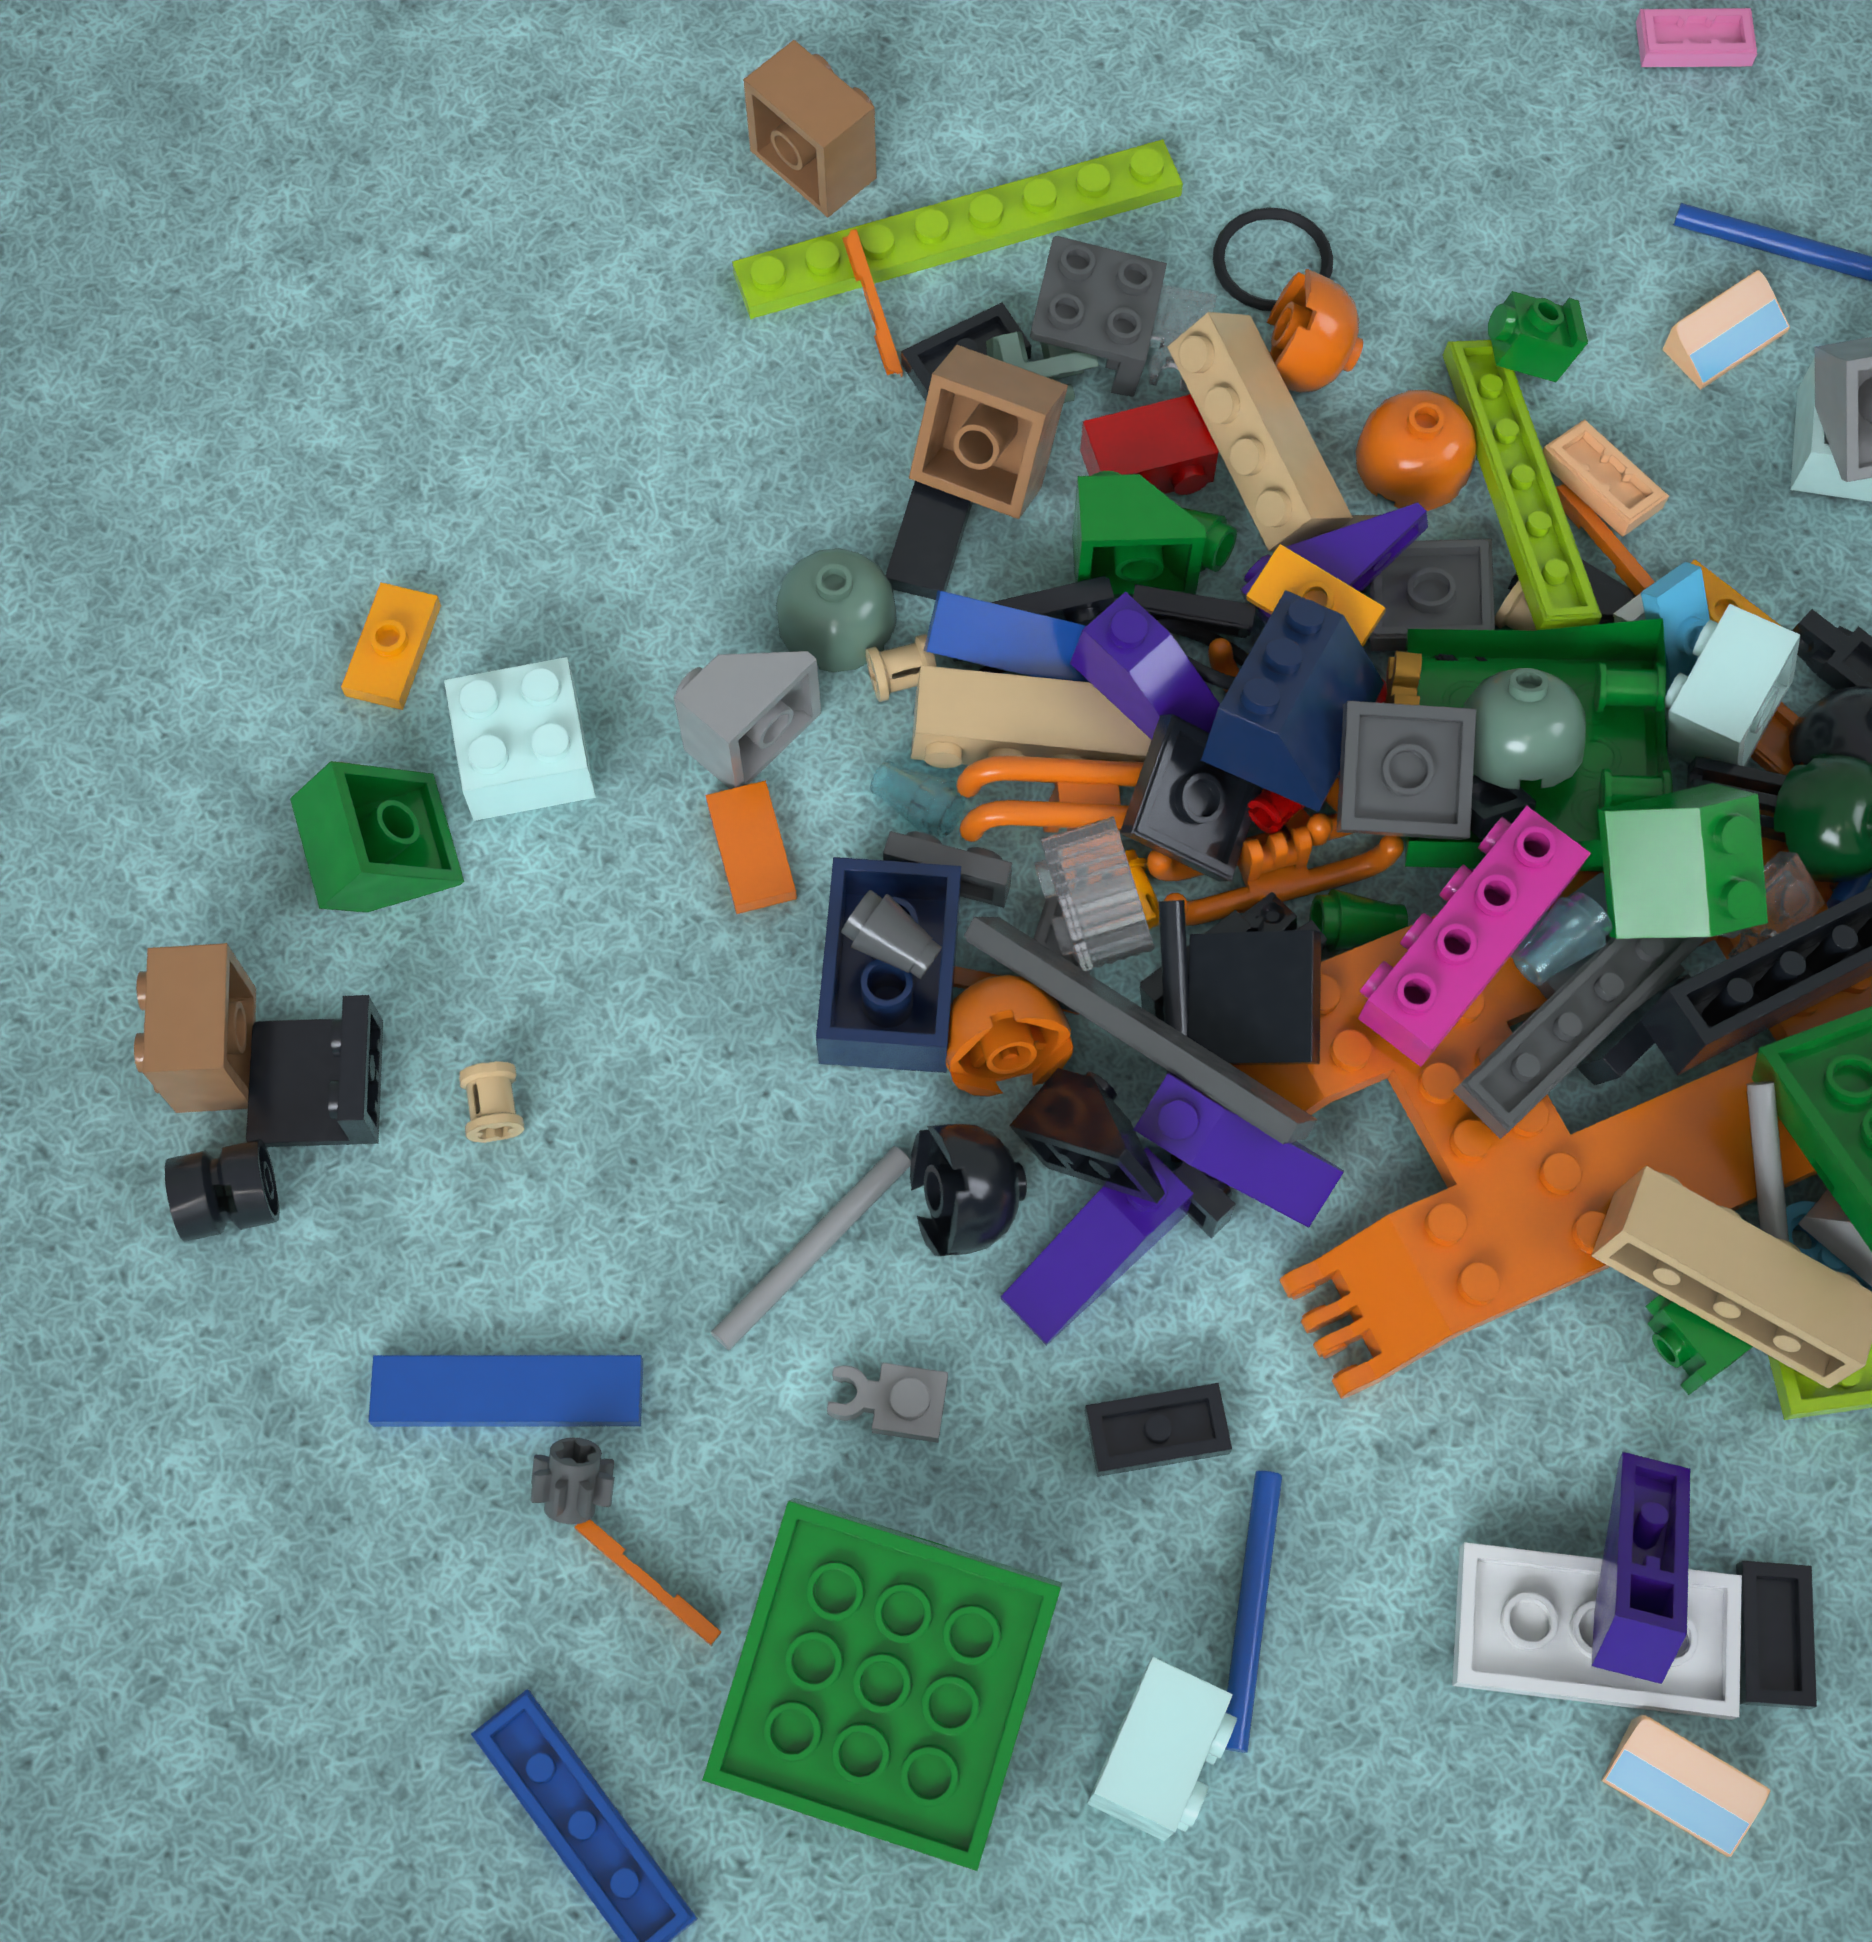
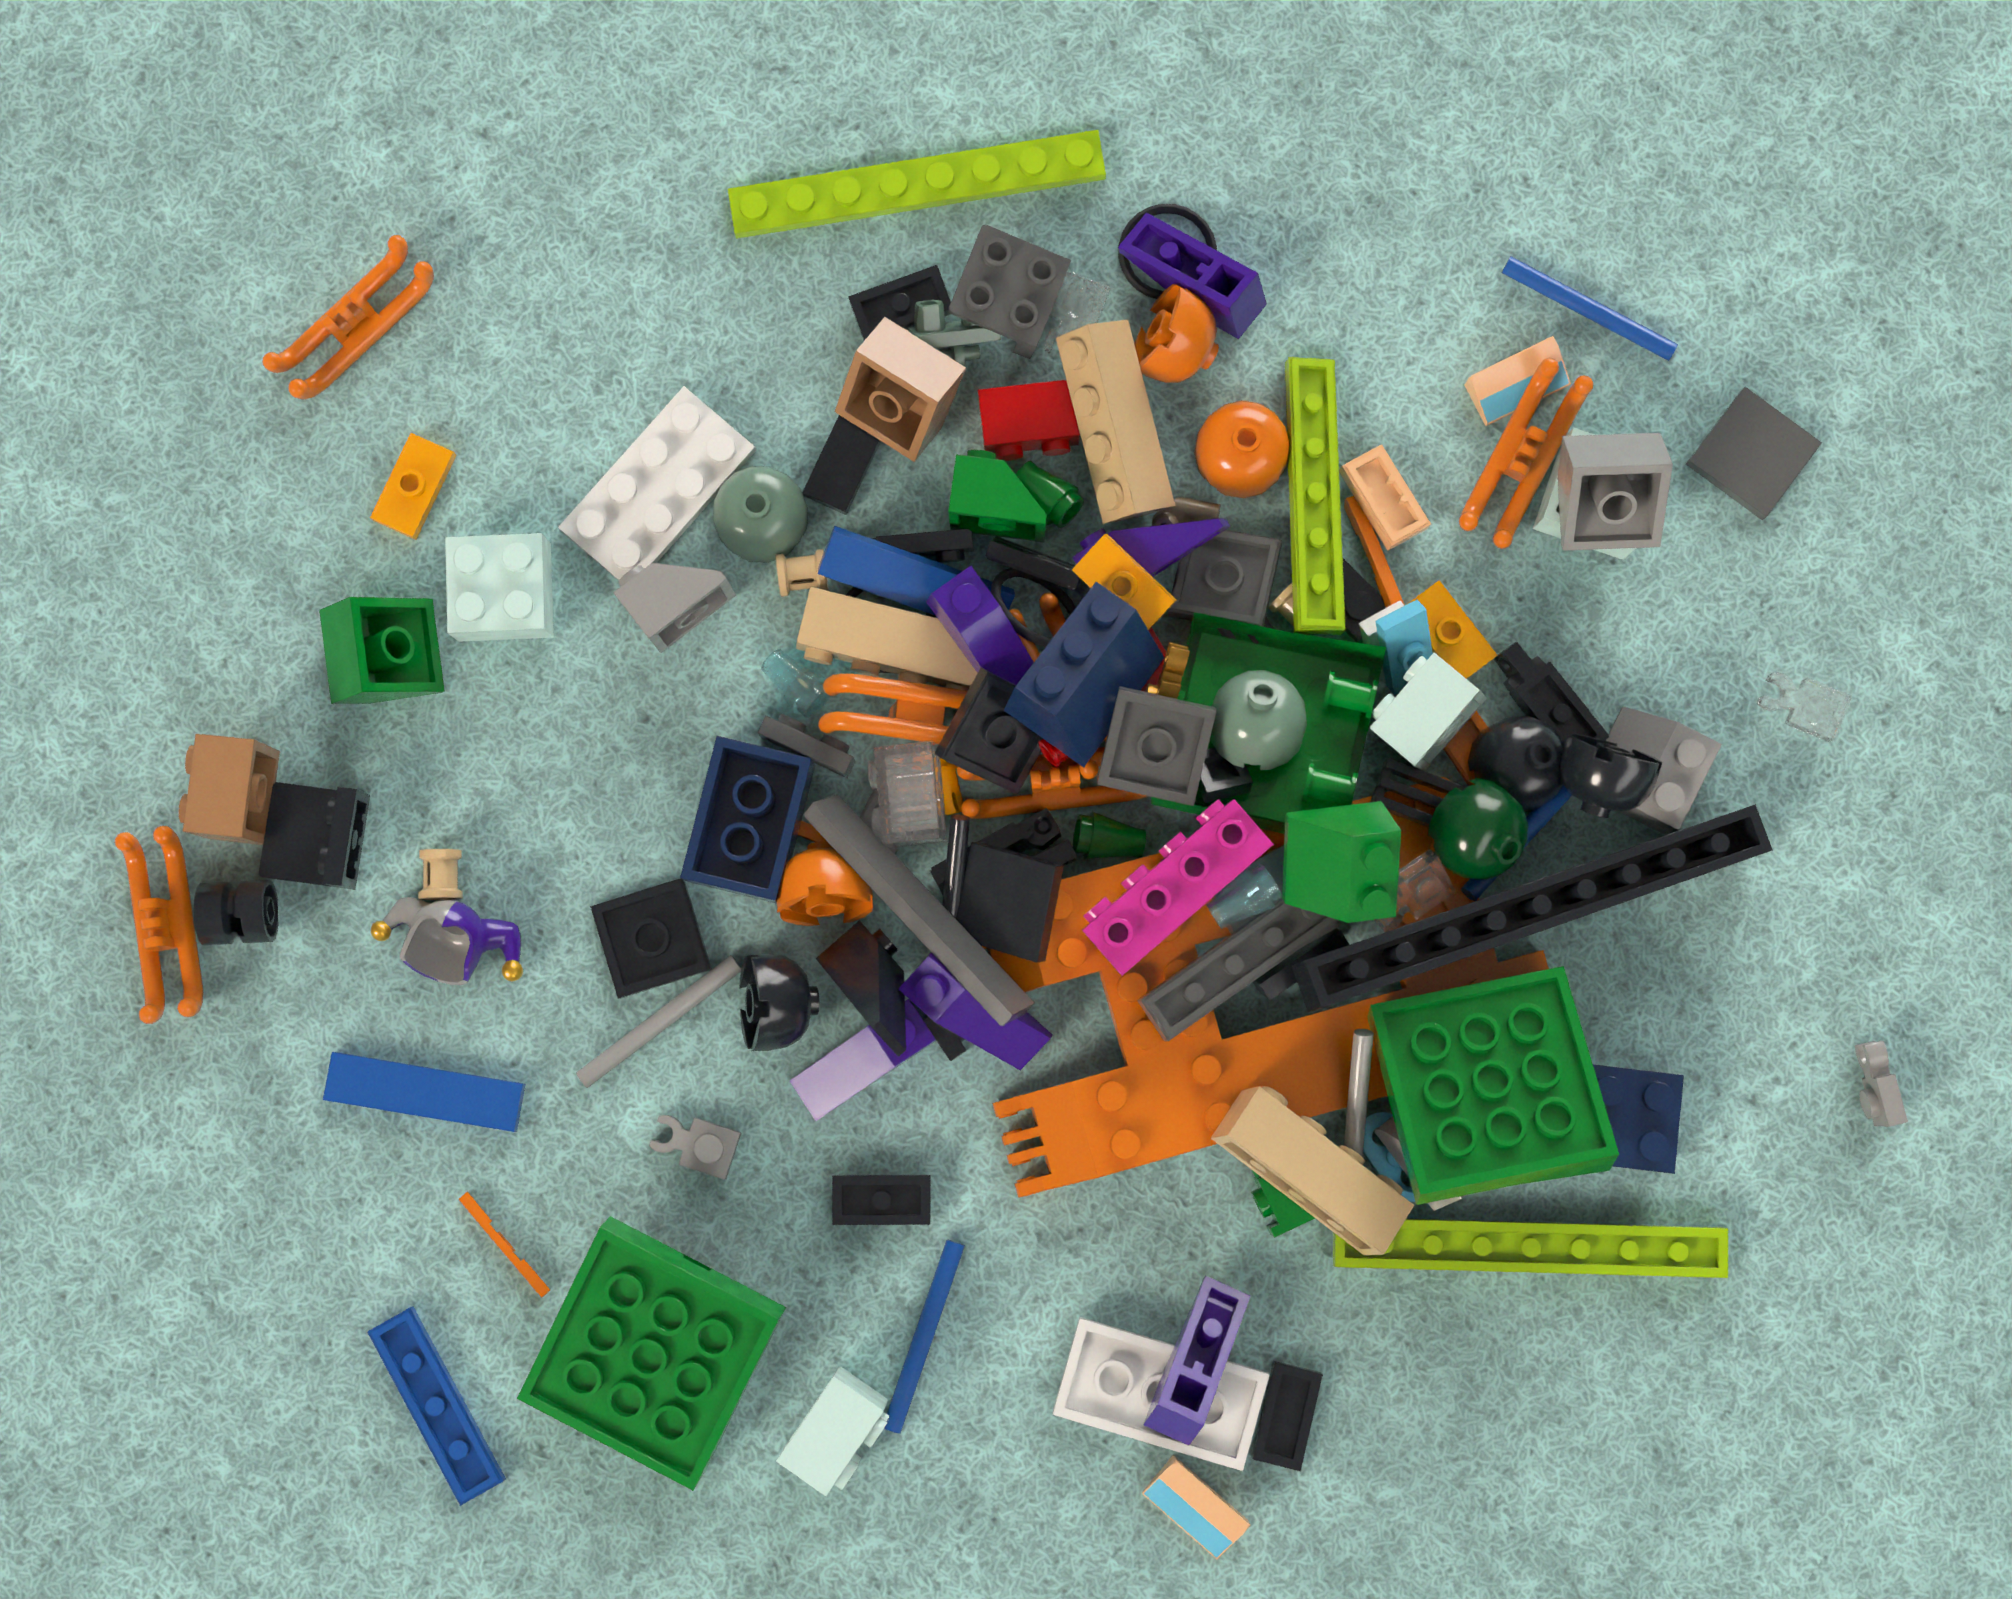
camera: 10 degrees right, 15 degrees up
(120, 1223) = (163, 924): none -> orange piece
(293, 469) = (353, 322): none -> orange piece
(515, 1181) = (450, 939): none -> piece
(572, 1480) = (460, 1169): dark grey gear -> none
(699, 597) = (657, 486): none -> white plate
(751, 847) = (663, 700): orange tile -> none
(783, 1142) = (651, 938): none -> black tile
(811, 127) = (808, 83): medium nougat brick -> none
(862, 273) = (837, 276): orange piece -> none
(890, 935) = (746, 811): dark grey cone -> none
(1359, 262) = (1176, 258): none -> dark purple slope
(1537, 335) = (1358, 366): green brick -> none
(1696, 37) = (1562, 101): bright pink plate -> none
(1760, 403) = (1524, 453): none -> orange piece

